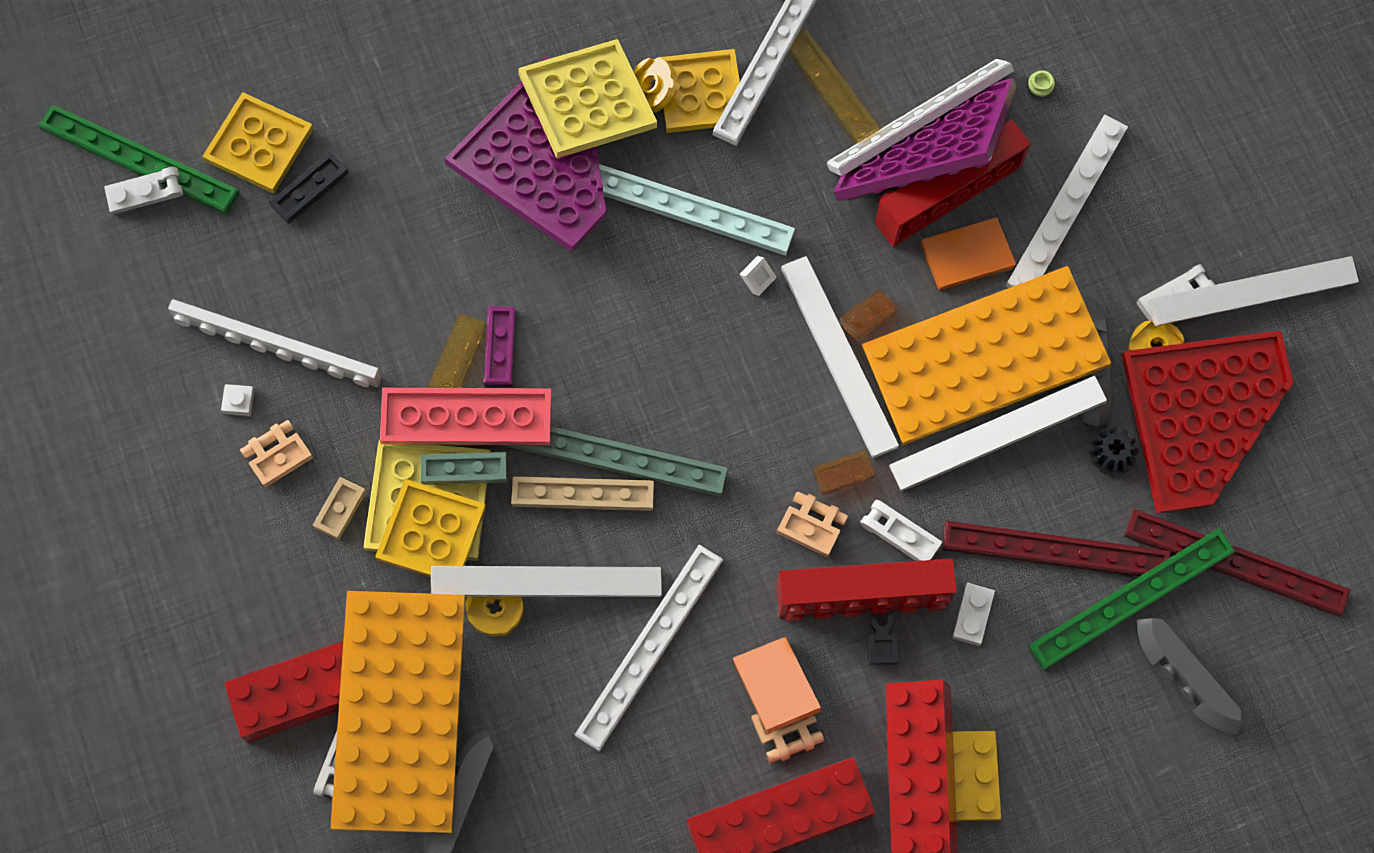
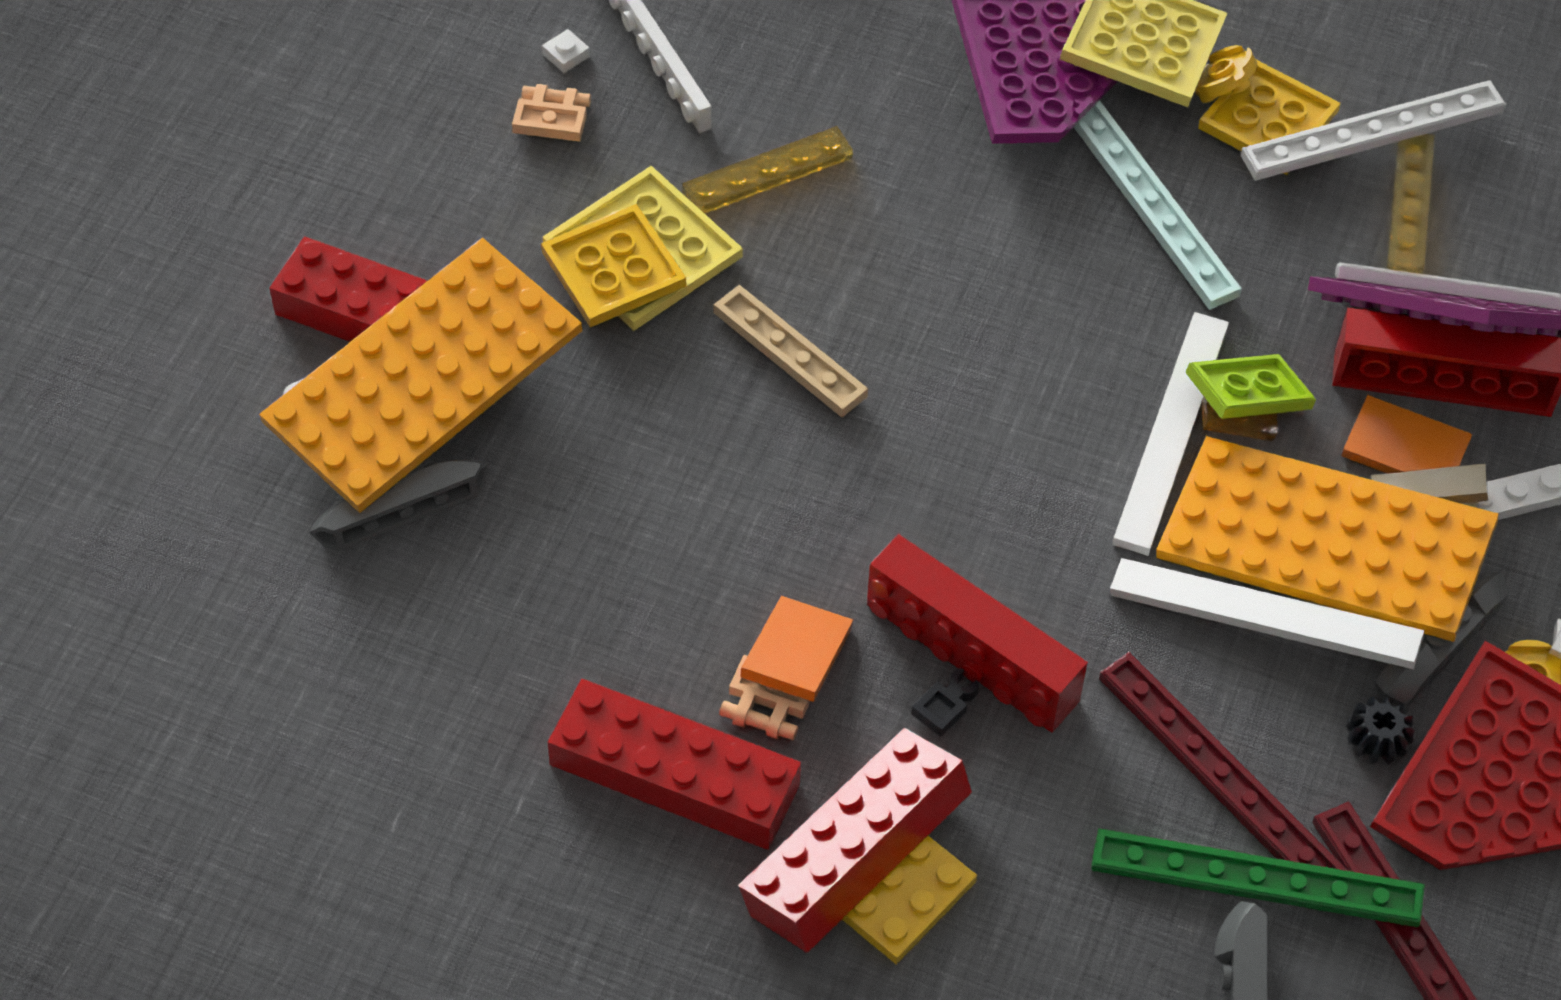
camera: 45 degrees right, 15 degrees down
(339, 508) = (557, 194): tan plate -> none
(463, 468) = (699, 238): sand green plate -> none
(465, 416) = (749, 201): coral plate -> none
(494, 624) = (610, 394): yellow plate -> none
(500, 346) = (845, 181): magenta tile -> none
(546, 581) = (677, 389): white tile -> none
(632, 461) = (838, 324): sand green plate -> none
(648, 648) = (712, 525): white tile -> none
(758, 275) = (1160, 301): white plate -> none
(808, 530) = (977, 552): light nougat plate -> none
(843, 472) = (1066, 528): clear orange plate -> none
(860, 292) = (1250, 386): none -> lime tile
(901, 532) = (1069, 620): white plate -> none
(973, 614) = (1068, 757): white plate -> none
(1012, 270) = (1454, 484): none -> dark tan tile

